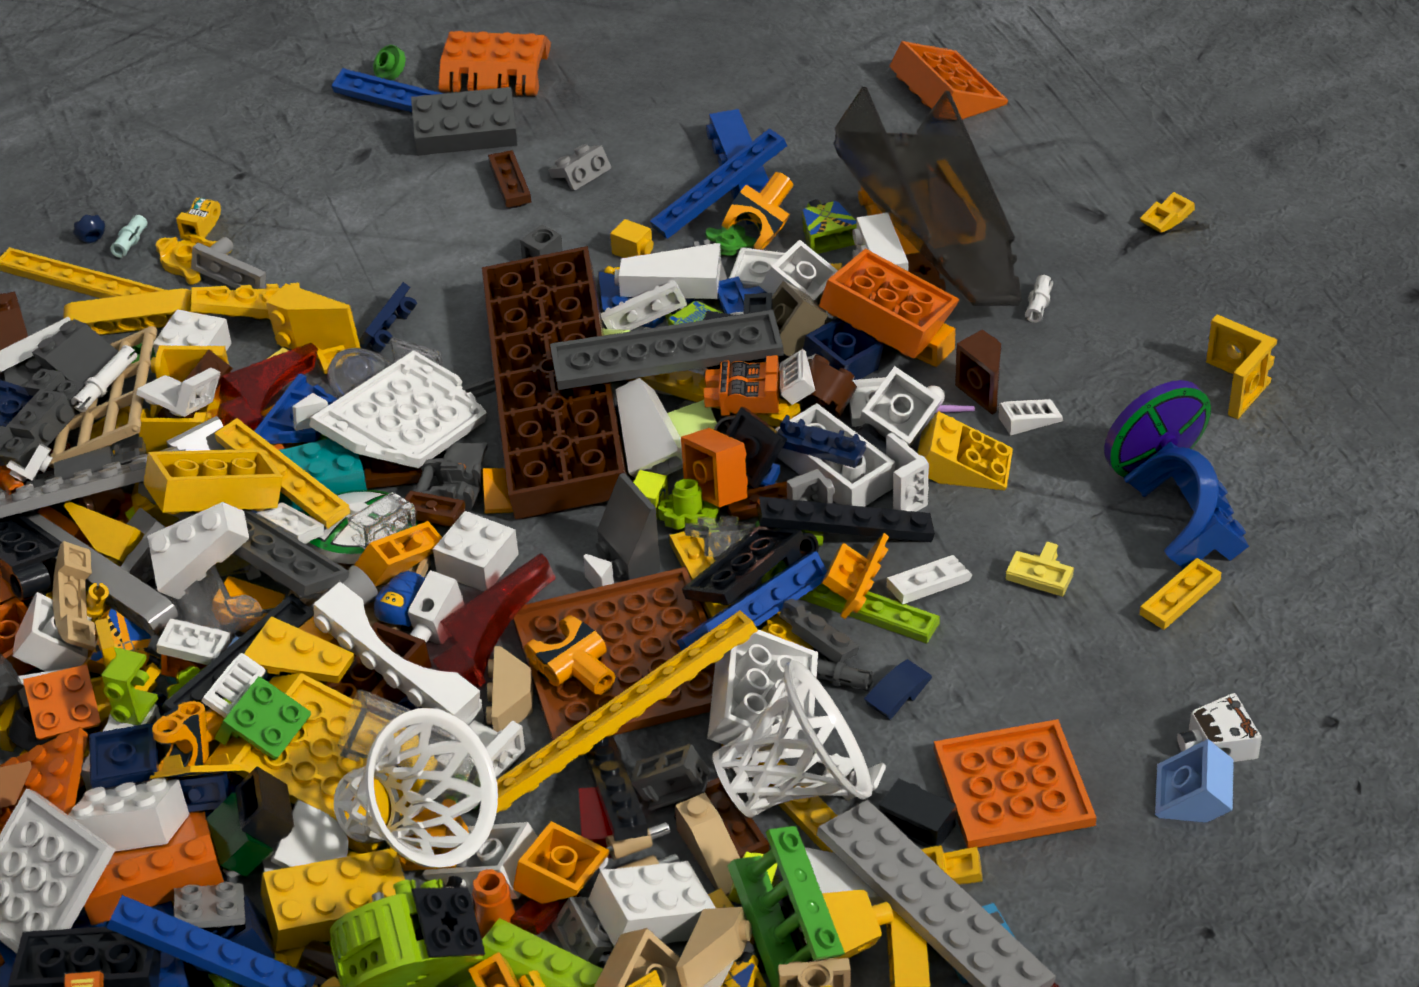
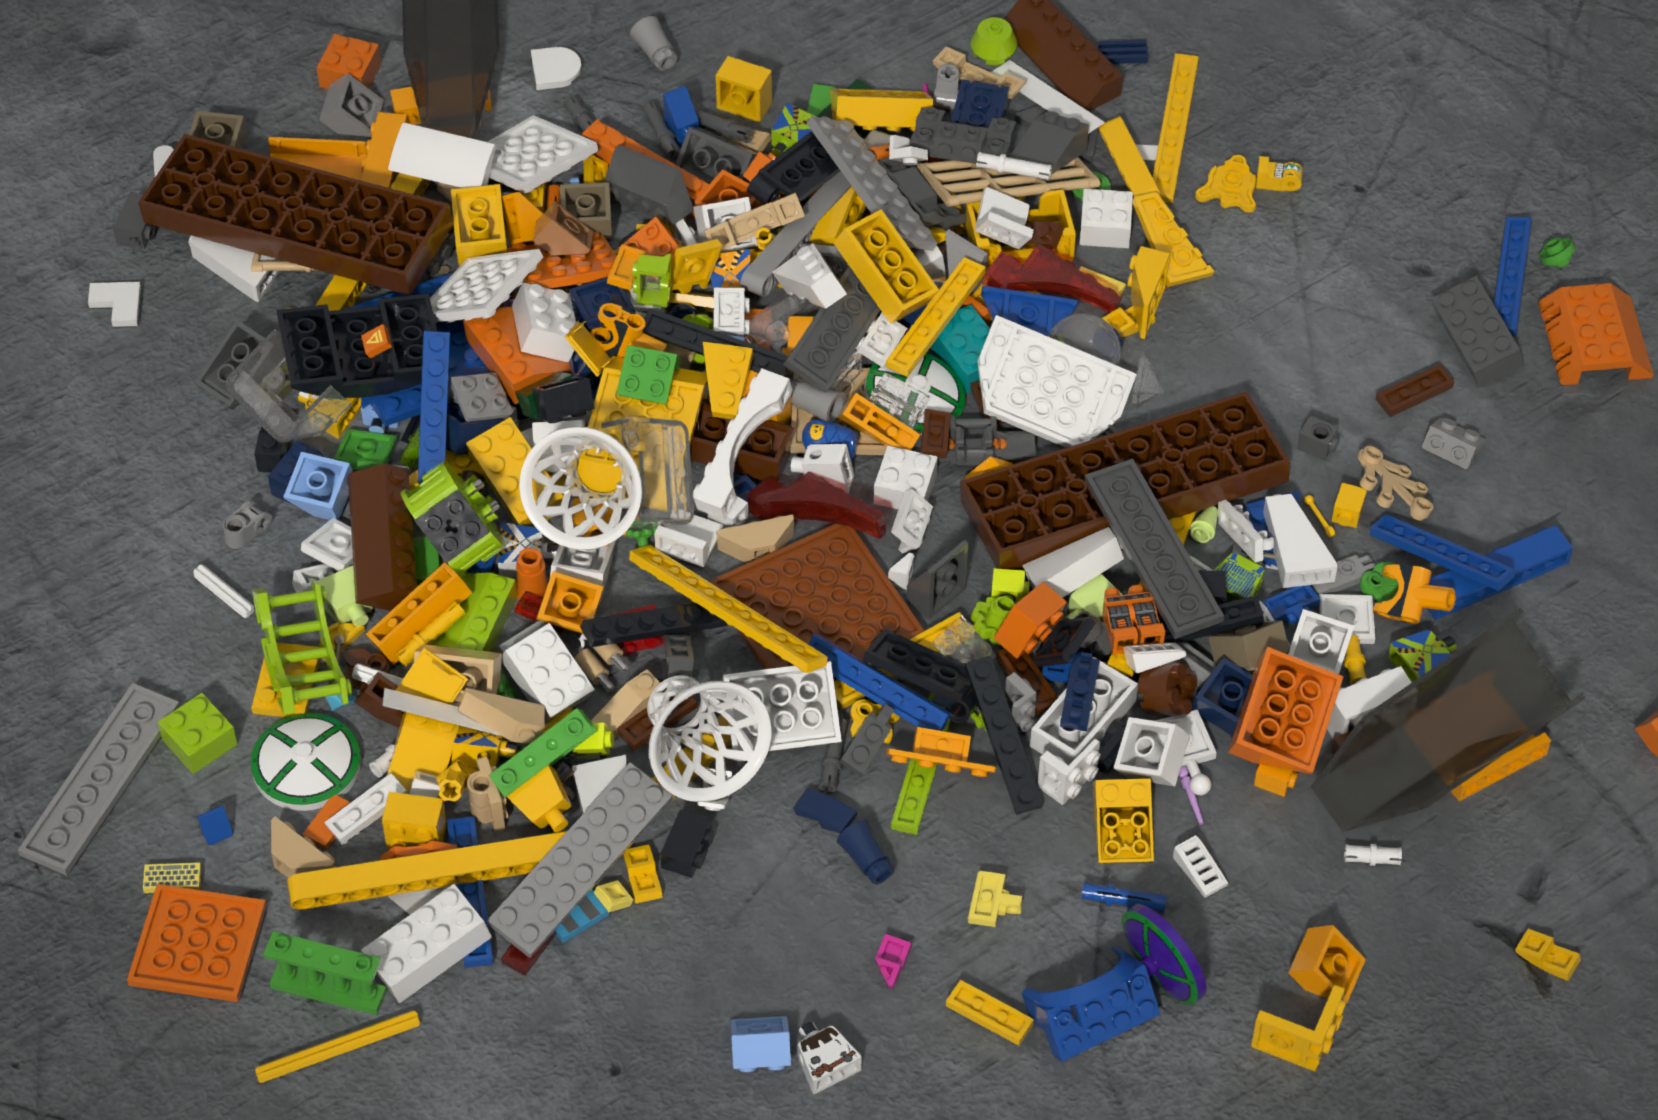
camera: 75 degrees right, 10 degrees up
(85, 720) = (622, 268): none -> light orange tile
(89, 228) = (1236, 103): dark blue plate -> none
(128, 236) = (1239, 133): light aqua pin -> none
(216, 264) = (1212, 196): light grey piece -> none
(243, 671) = (686, 338): white slope -> none
(305, 409) = (1013, 312): white slope -> none
(385, 318) = (1183, 345): dark blue plate -> none
(528, 547) = (911, 521): none -> white bracket
(572, 657) = (791, 570): light orange connector -> none
(617, 208) = (1372, 461): none -> tan plant
(928, 579) = (958, 814): white hinge -> none
(963, 657) = (866, 851): none -> dark blue plant
(979, 369) = (1232, 813): reddish brown slope -> none
(980, 892) = (613, 896): none -> light yellow tile
(1014, 784) = (737, 909): orange plate -> none
(1053, 479) = (1091, 891): none -> blue pin
(1098, 665) = (892, 957): none -> dark pink slope
(1159, 346) = (1326, 961): none -> light orange slope

